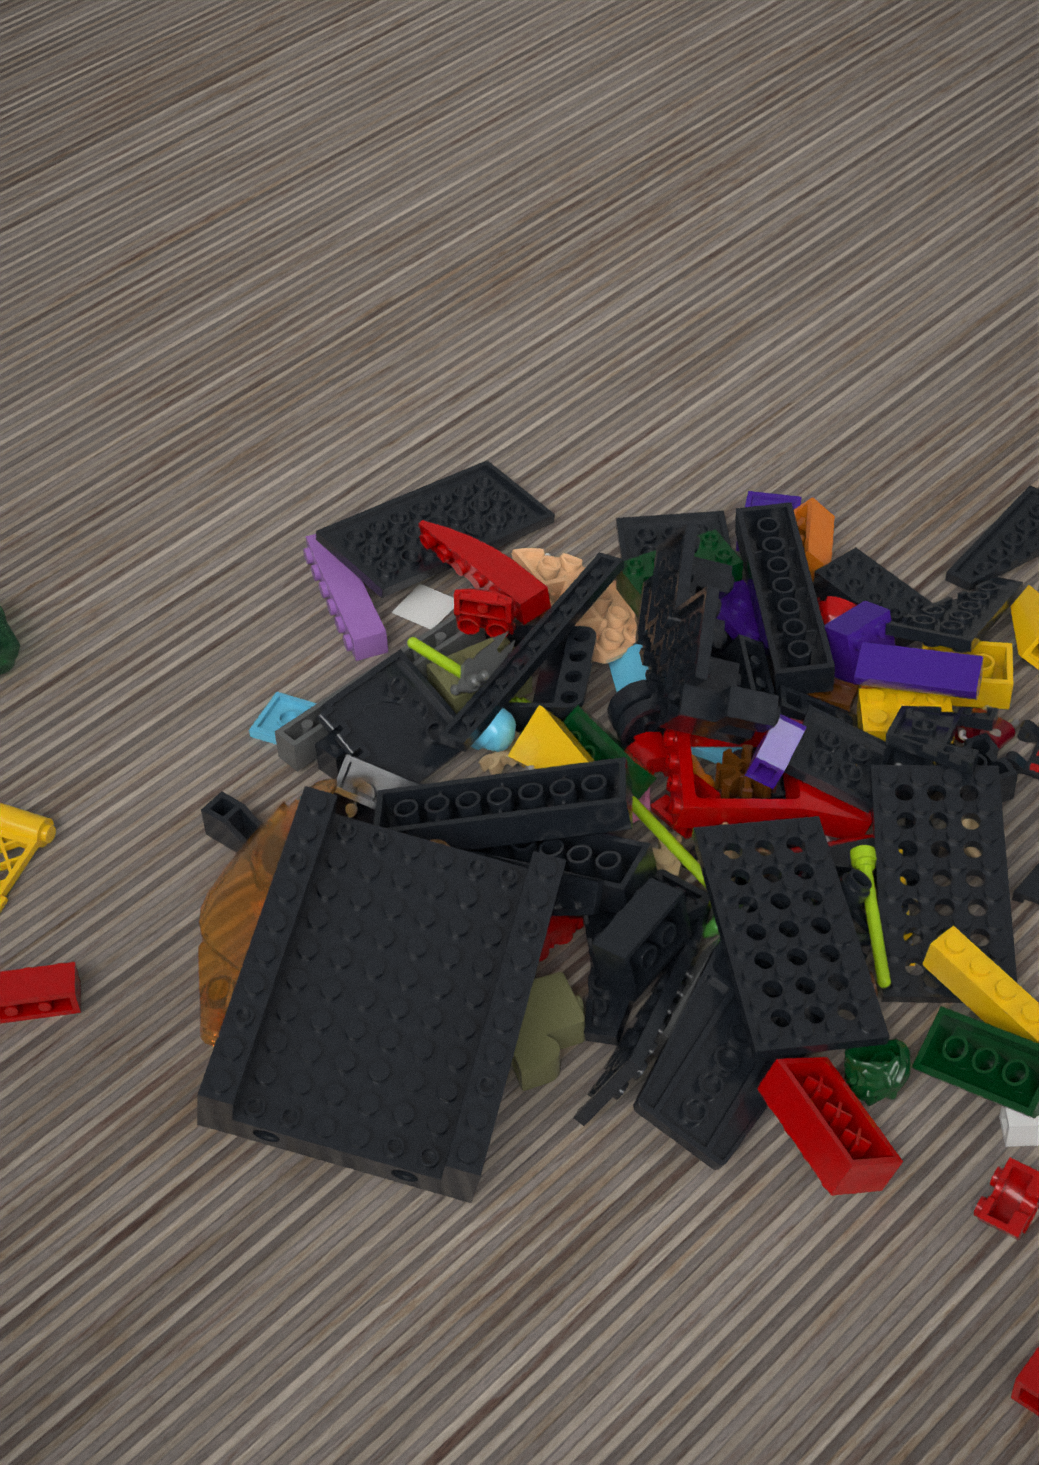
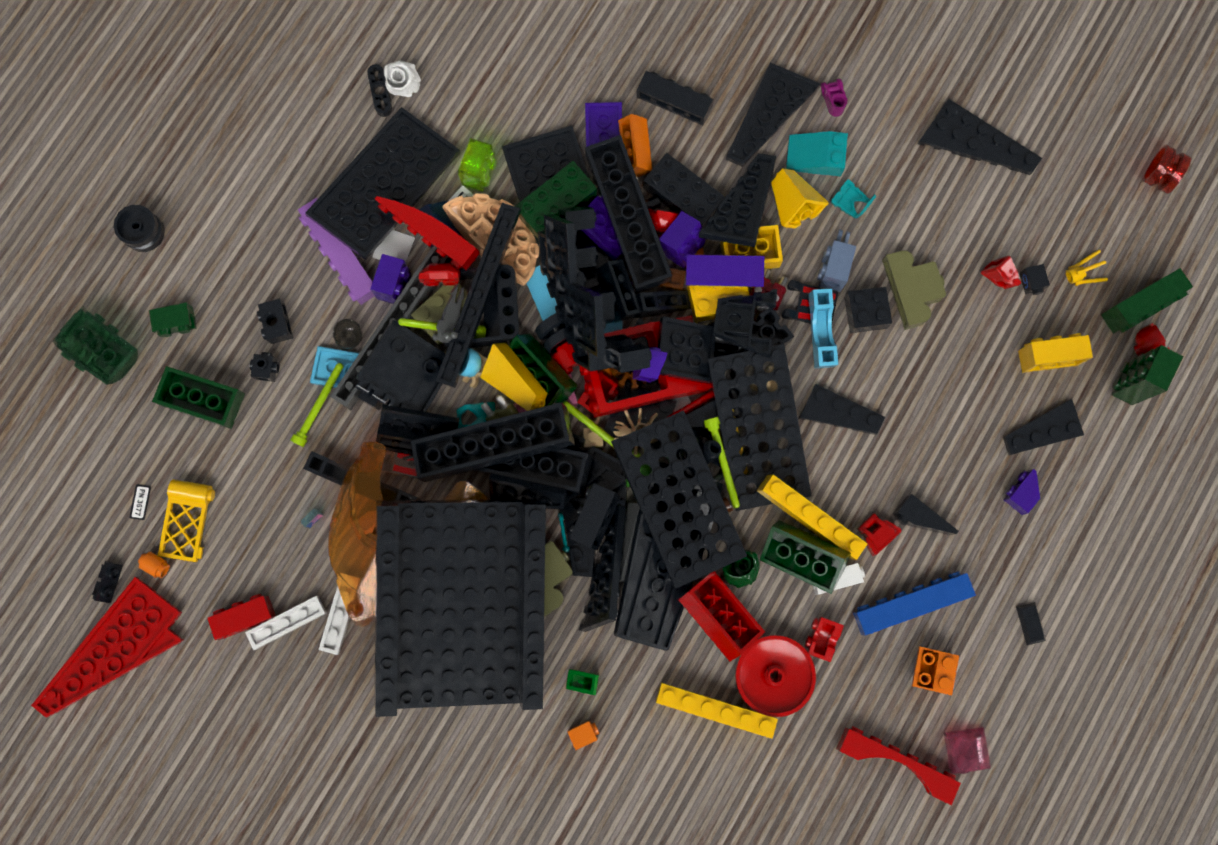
camera: 15 degrees left, 35 degrees up
(81, 528) = (139, 228): none -> black wheel
(82, 629) = (172, 319): none -> dark green brick
(82, 715) = (198, 397): none -> dark green brick
(93, 1015) = (285, 622): none -> white plate
(171, 1033) = (335, 626): none -> white plate
(188, 887) = (311, 518): none -> clear light blue tile
(190, 698) = (264, 367): none -> black brick
(210, 788) = (300, 437): none -> lime piece
(225, 653) = (281, 330): none -> black brick
(324, 677) = (347, 334): none -> clear smoke hair
(408, 616) = (390, 278): none -> dark purple brick
(462, 440) = (384, 96): none -> black beam
(497, 433) = (401, 78): none -> white hair
(540, 1268) = (583, 734): none -> orange brick
(564, 1189) = (582, 681): none -> green slope
(575, 523) = (477, 165): none -> clear neon green brick
(584, 970) = (566, 548): none -> teal hinge
(793, 1275) = (716, 710): none -> yellow brick
(881, 504) = (674, 97): none -> black brick
(911, 1239) = (794, 676): none -> red dish

